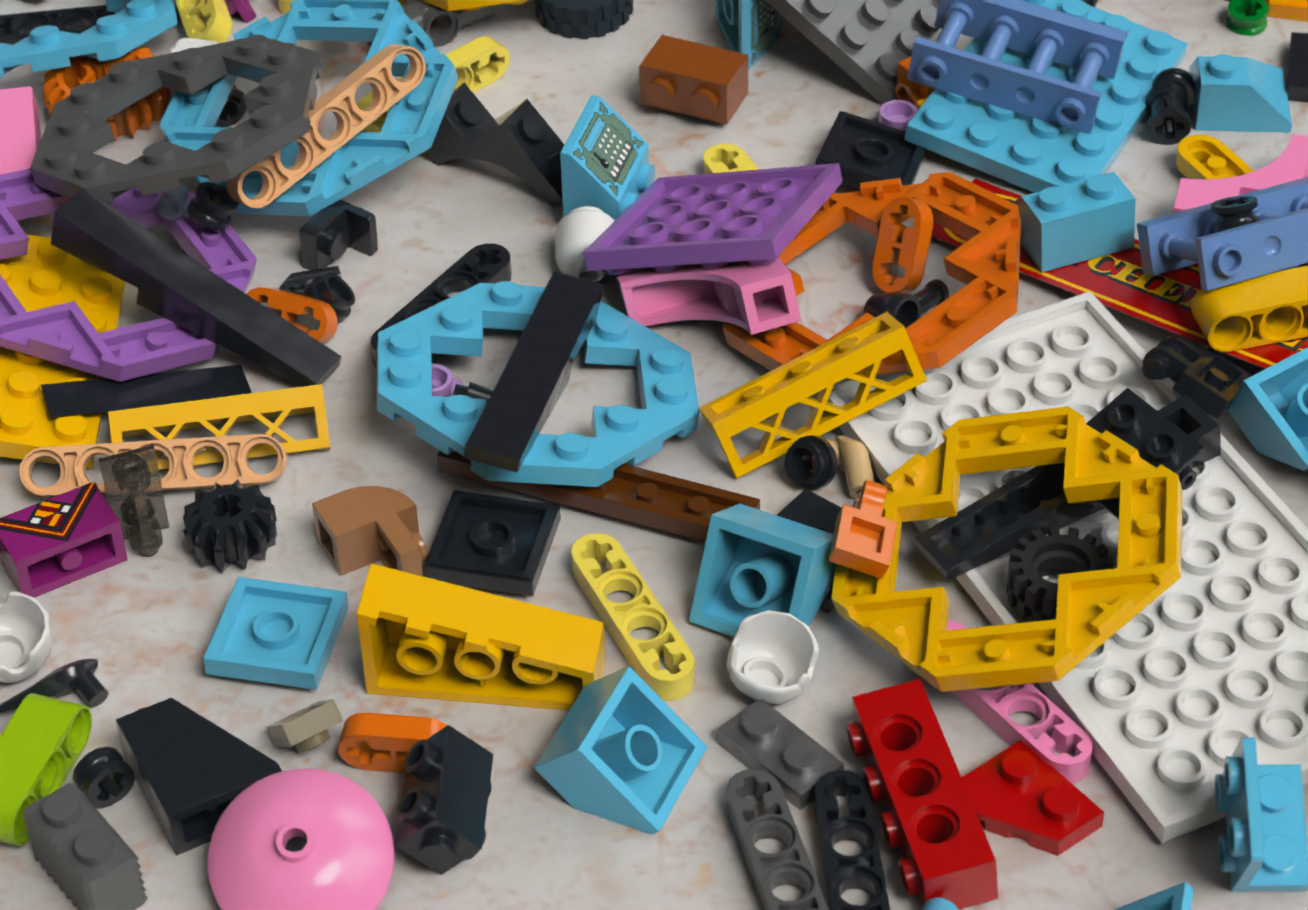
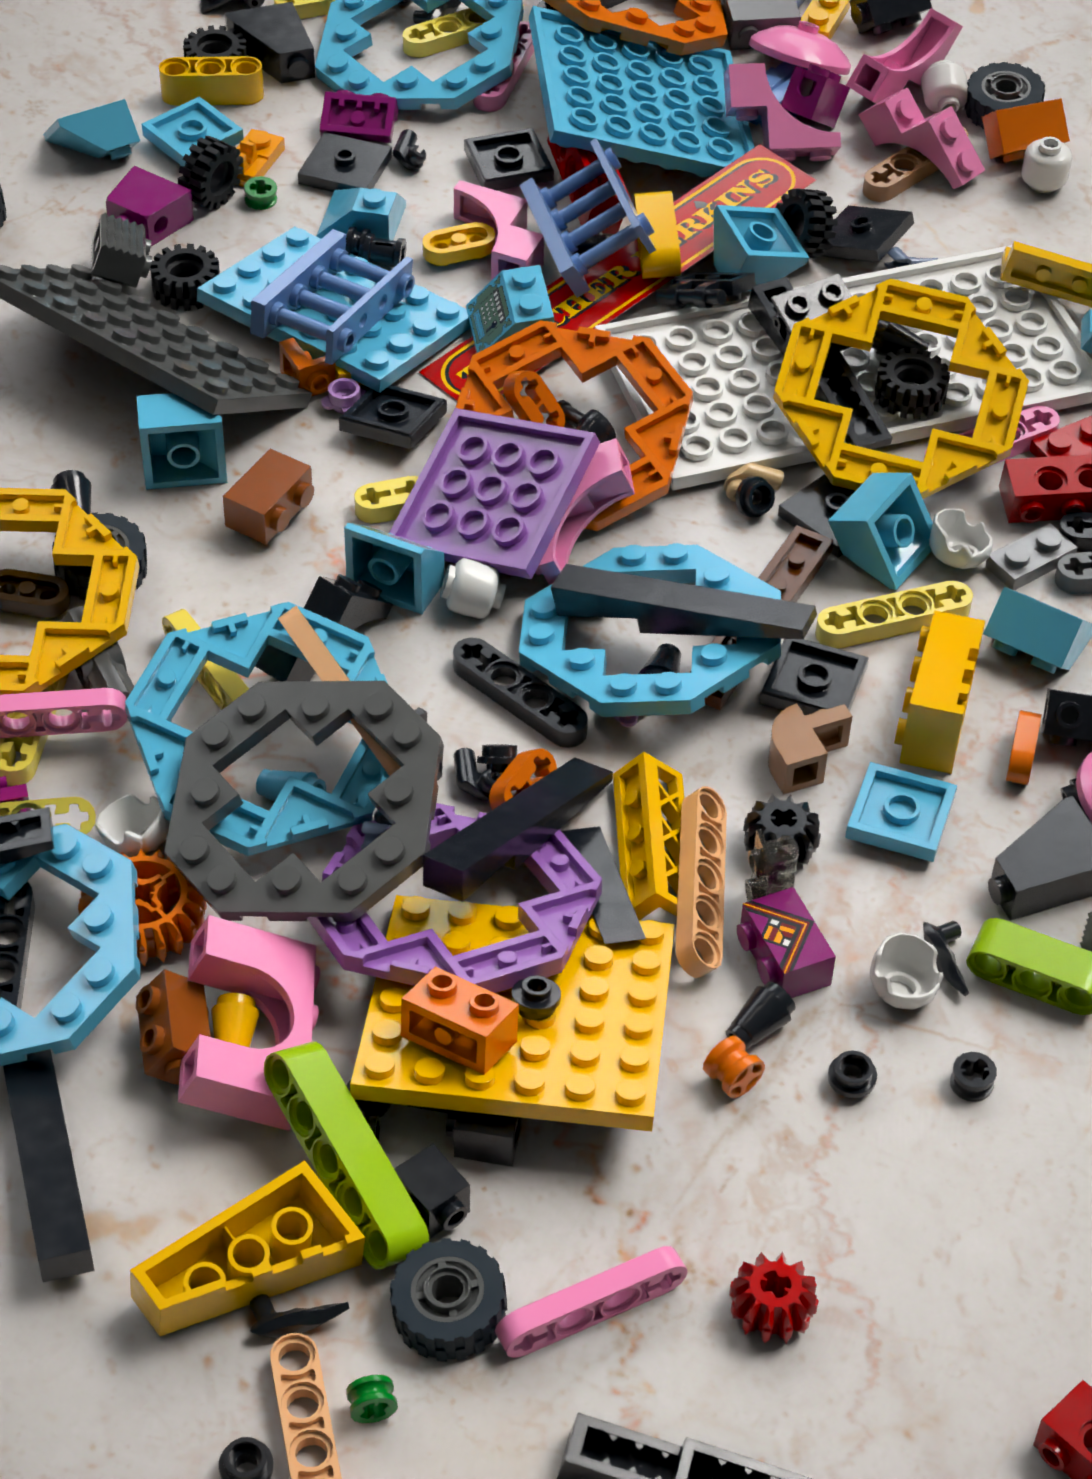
camera: 85 degrees left, 5 degrees up
(103, 776) = (1050, 917): black bush -> none
(306, 727) = (1003, 796): dark tan plate -> none
(806, 376) = (700, 470): yellow fence -> none
(862, 536) = (880, 453): orange plate -> none
(1234, 212) = (581, 217): black bush -> none

